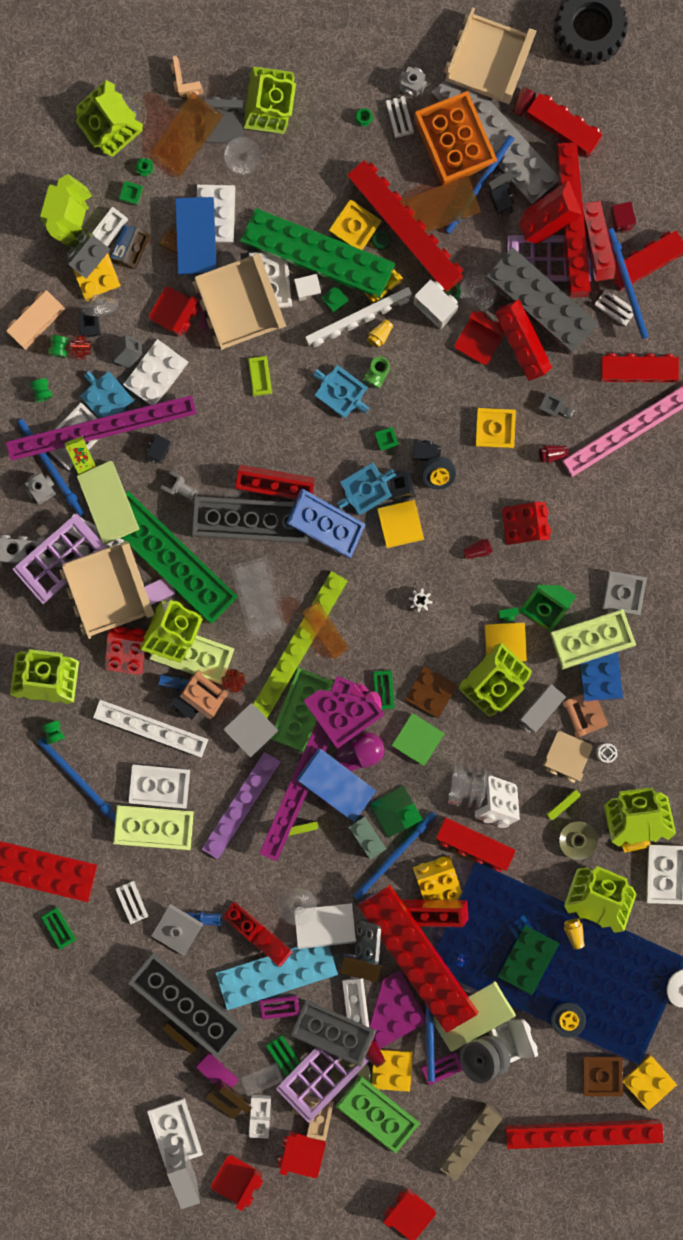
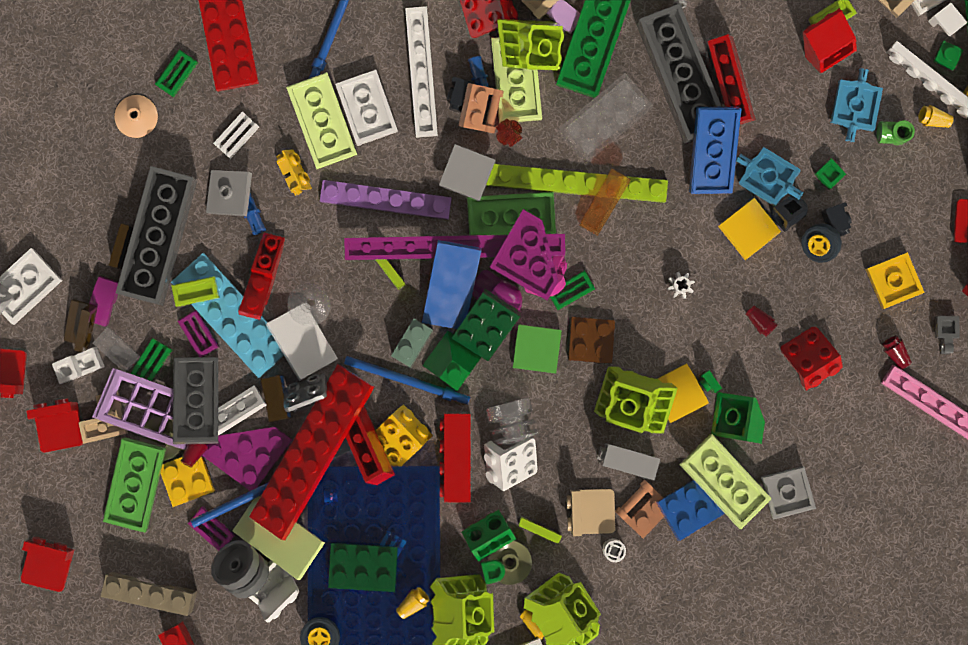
camera: 60 degrees right, 0 degrees up
(79, 967) = (143, 123): none -> light nougat dish
(193, 869) = (290, 162): none -> yellow hinge
(245, 993) = (195, 291): none -> lime tile
(280, 391) = (829, 41): none -> red slope
(381, 771) = (486, 325): none -> dark green plate
(551, 847) = (490, 539): none -> green brick
(579, 857) = (493, 571): none -> green tile

